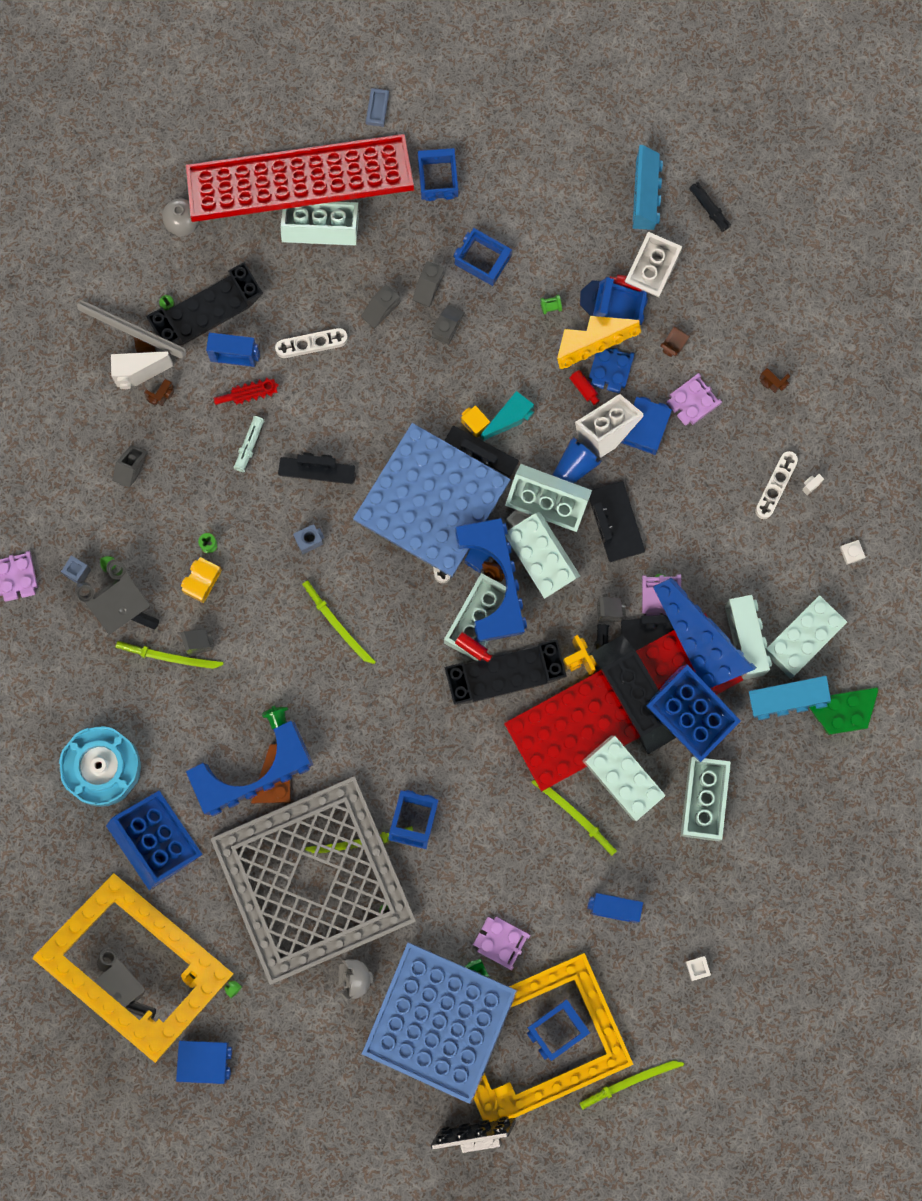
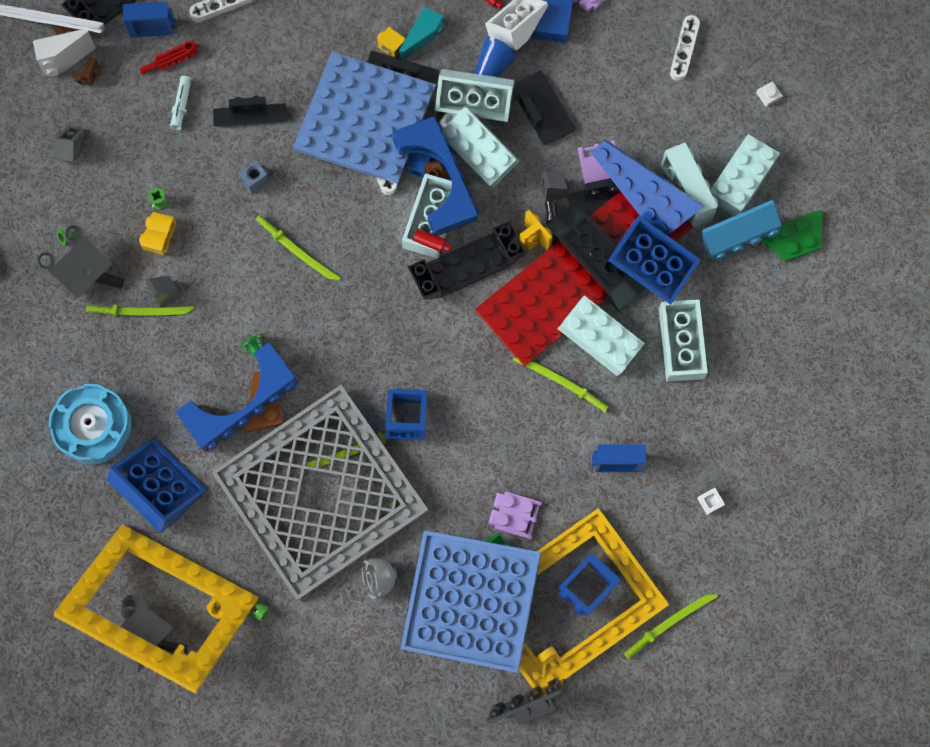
camera: 10 degrees left, 5 degrees down
(75, 570) = (34, 245): sand blue brick -> none
(203, 1062) = (244, 688): blue panel -> none
(812, 483) = (718, 39): white plate -> none

